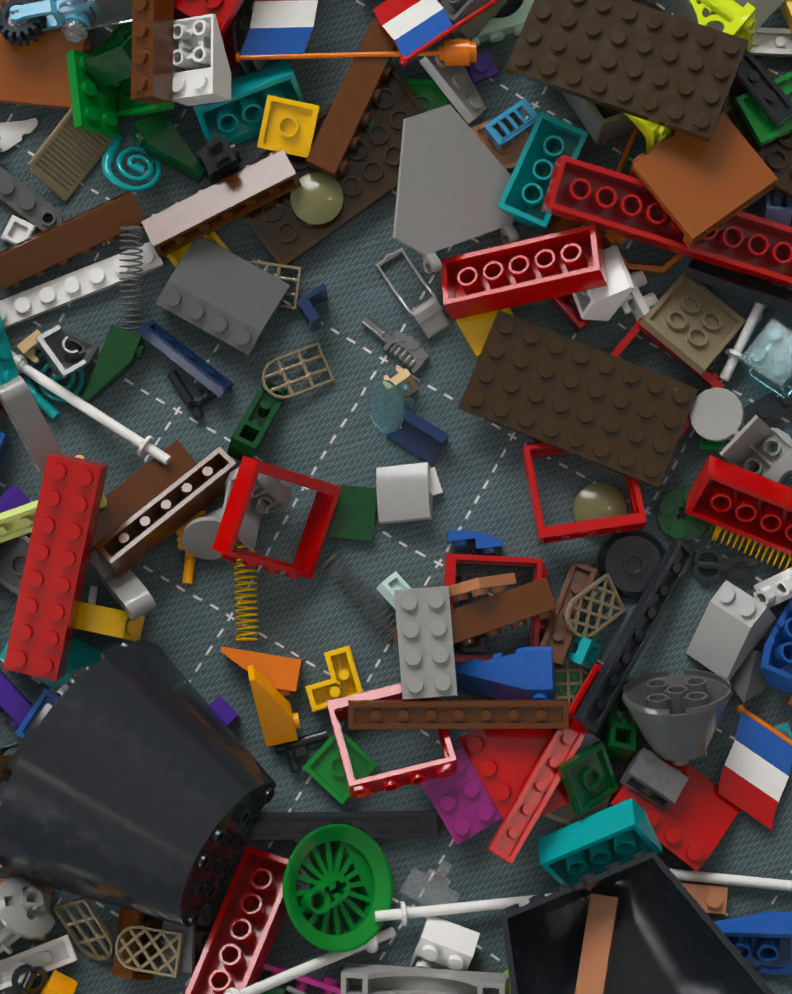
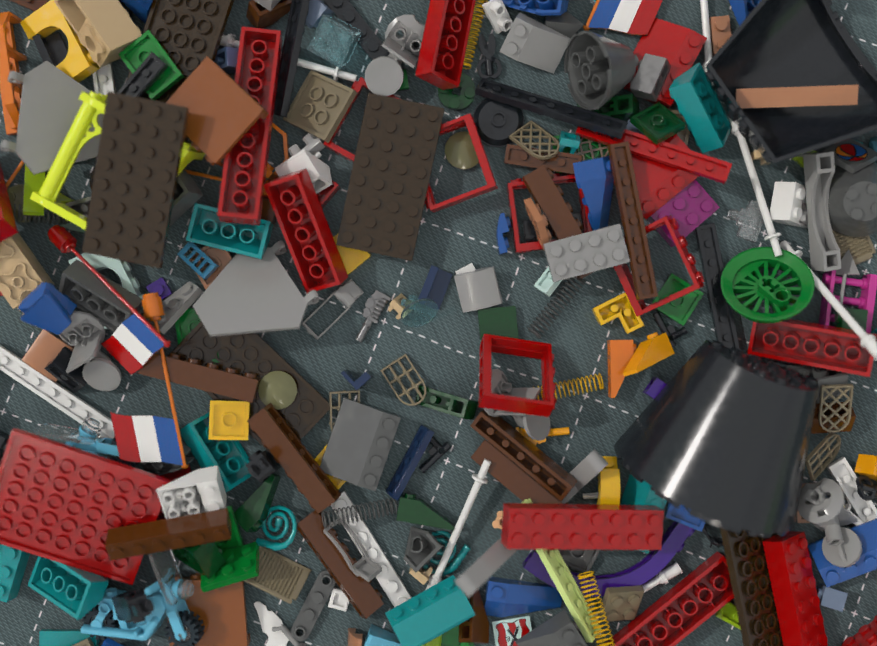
camera: 105 degrees left, 5 degrees up
(56, 271) = (364, 567): none -> light grey piece

